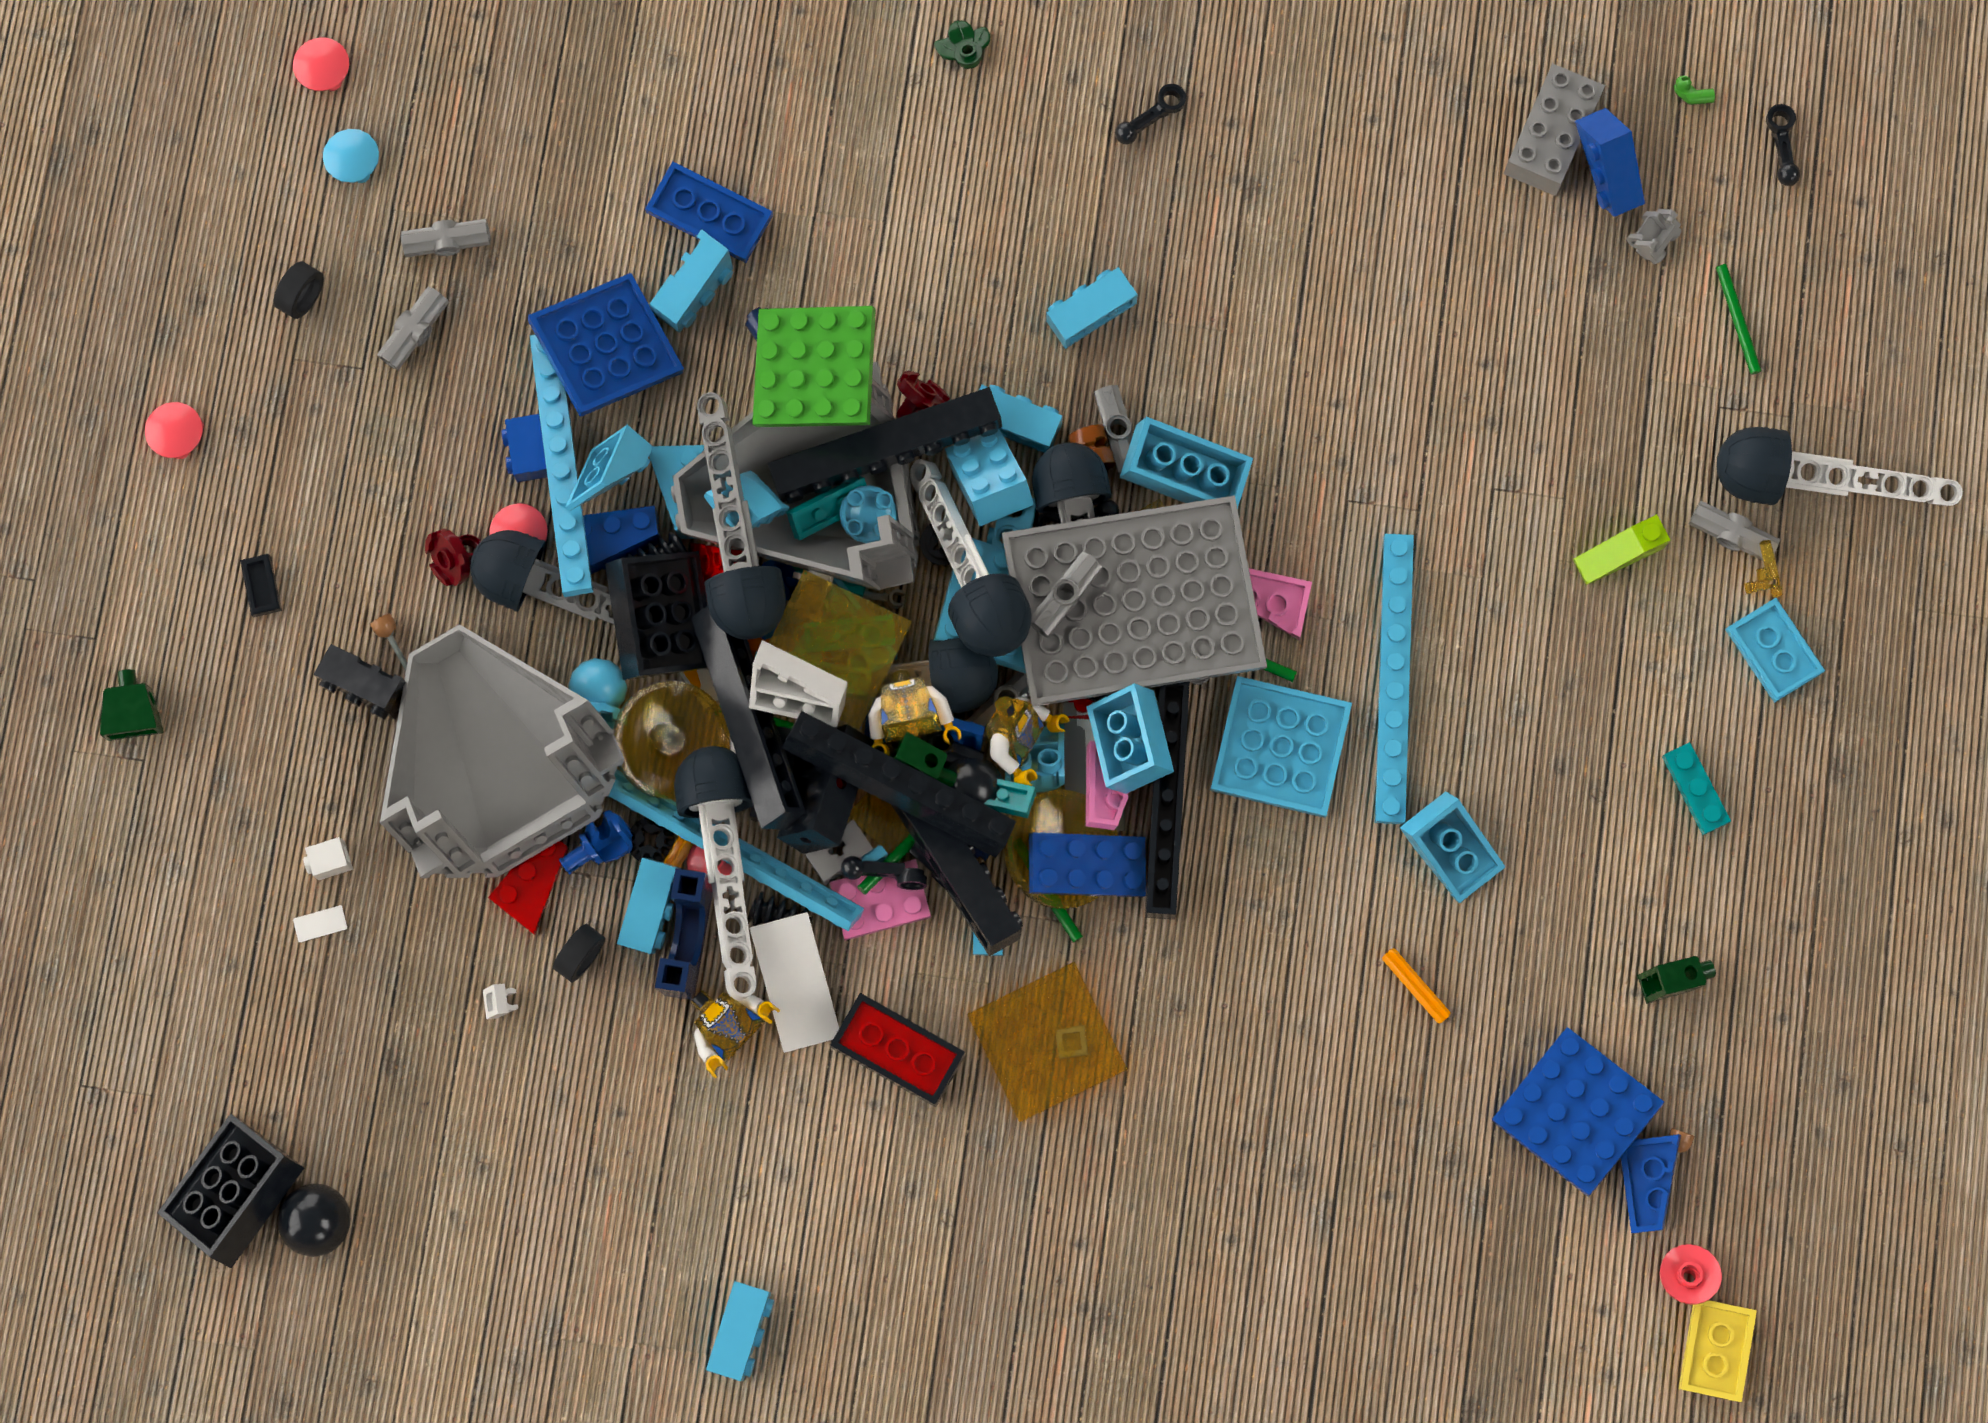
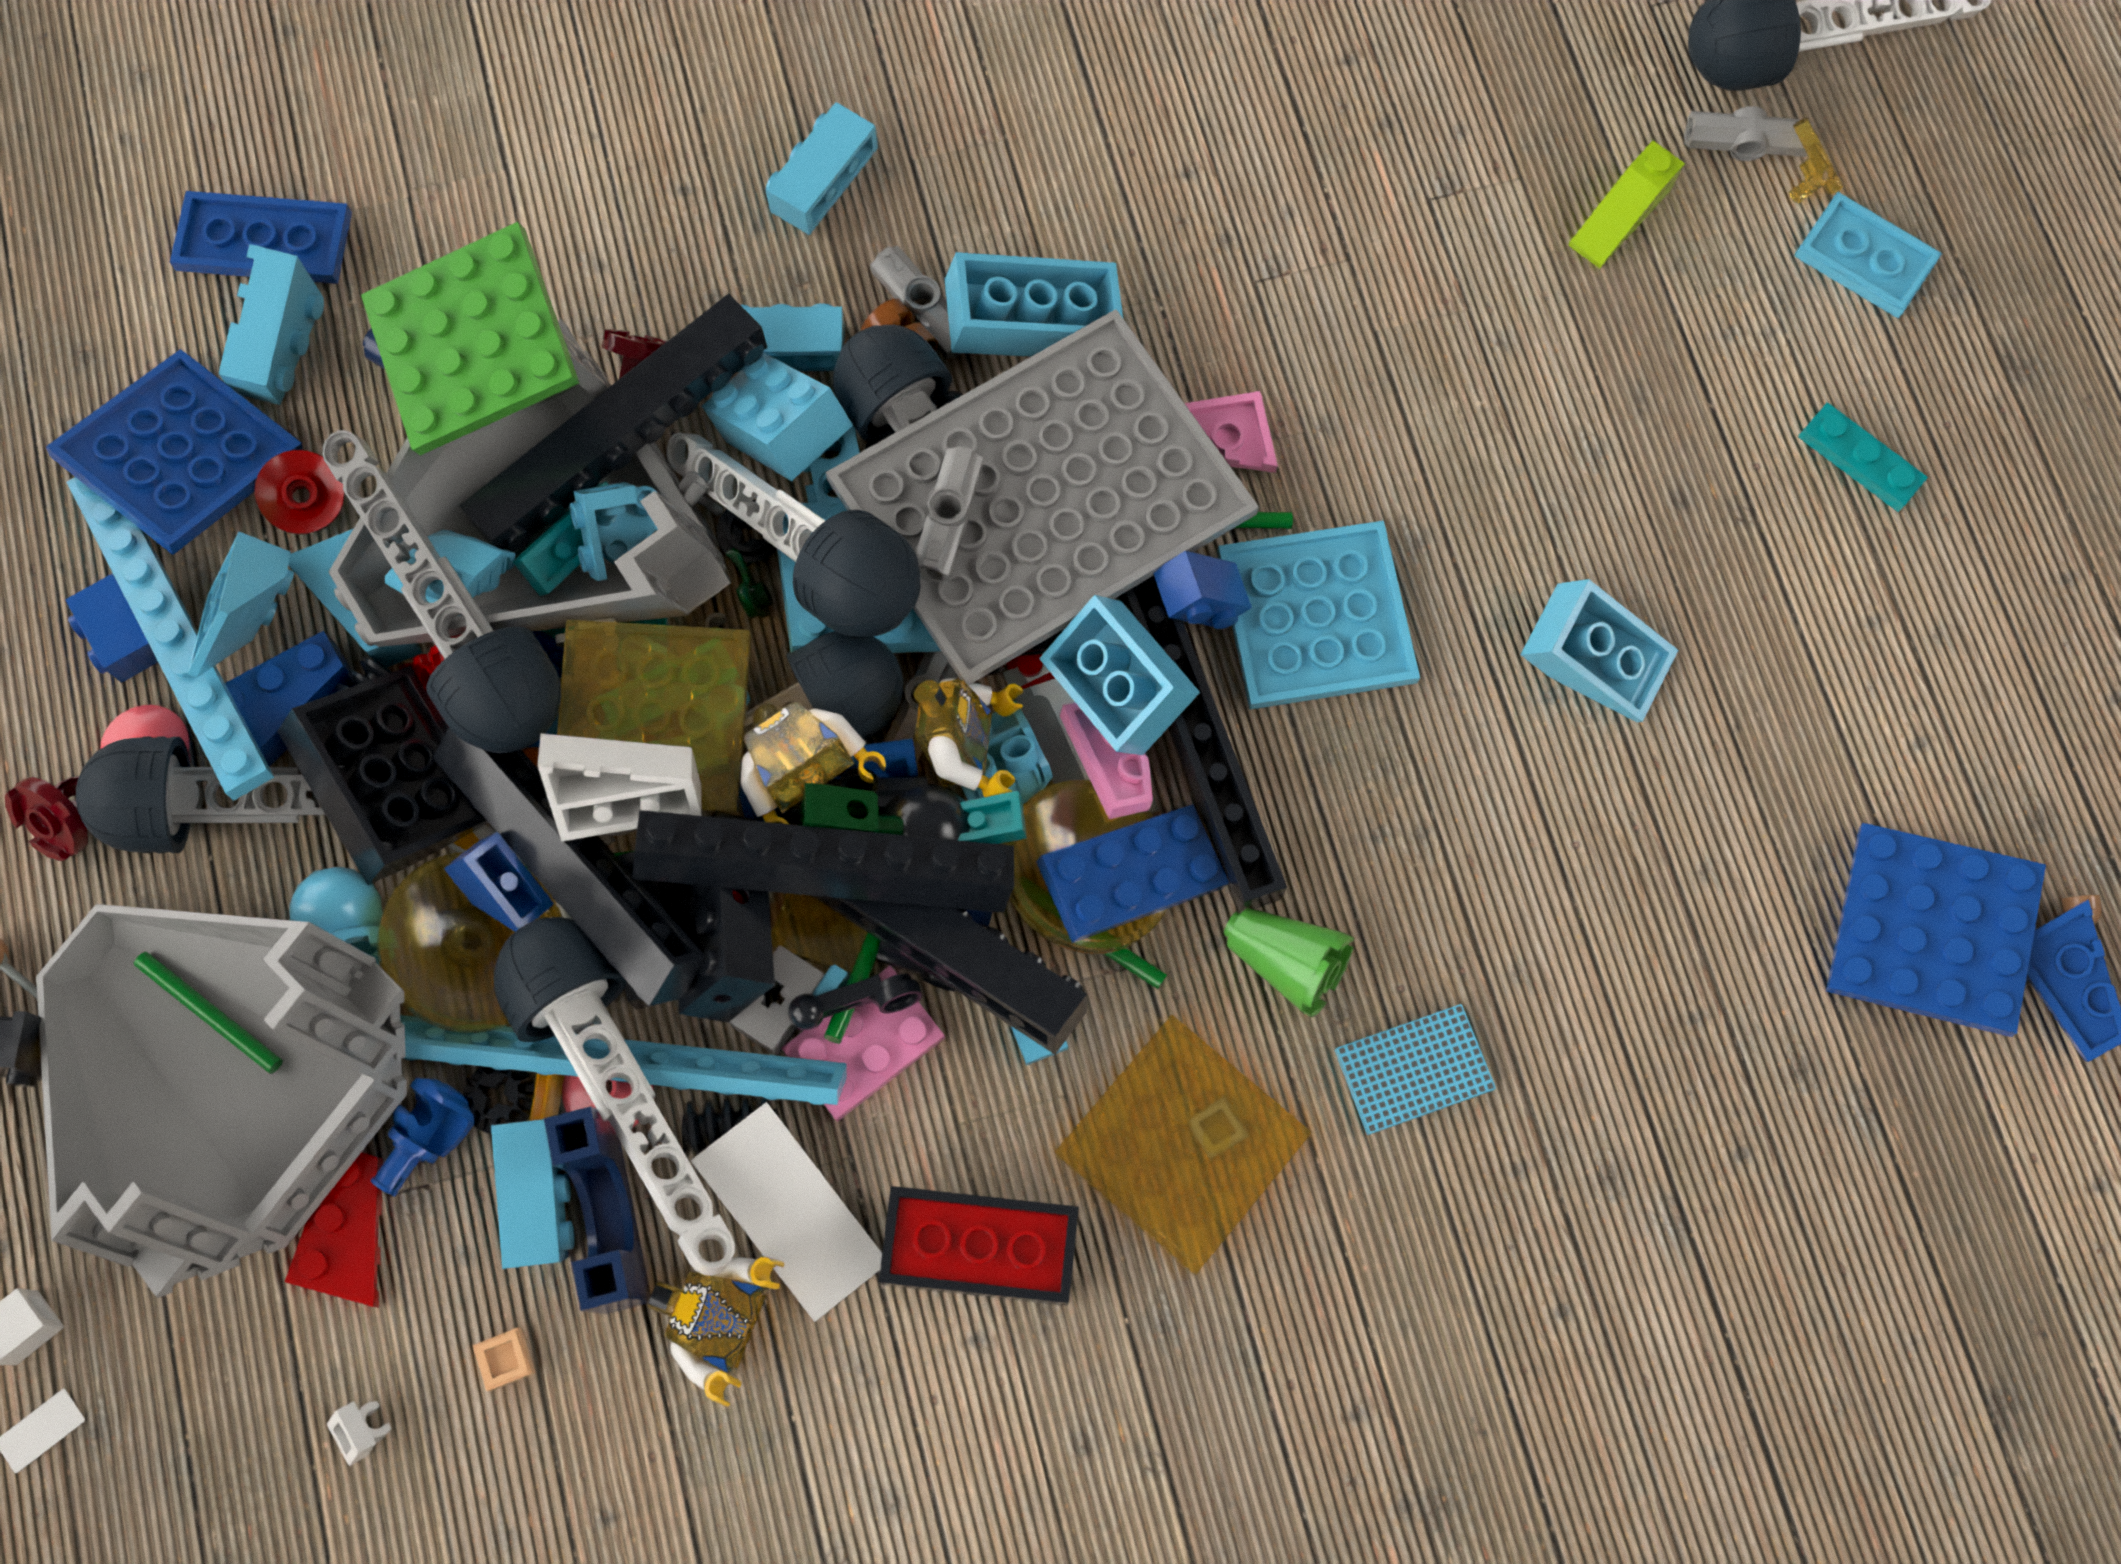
camera: 30 degrees left, 5 degrees down
(500, 717) = (208, 1012): none -> green bar
(579, 953) = (450, 1306): black tyre -> none
(596, 996) = (504, 1359): none -> light nougat tile
(671, 386) = (296, 471): none -> red dish
(701, 713) = (499, 883): none -> blue slope
(859, 496) = (609, 501): none -> medium azure bracket
(919, 503) = (695, 487): none -> light grey hand
(927, 587) = (752, 595): none -> dark green plate
(1162, 957) = (1291, 955): none -> bright green cone
(1208, 1058) = (1414, 1069): none -> medium azure tile
(1209, 704) = (1202, 590): none -> blue brick
(1394, 679) = (1422, 477): medium azure plate -> none
(1416, 985) = (1642, 852): light orange axle -> none
(1675, 978) = (1980, 690): dark green torso -> none

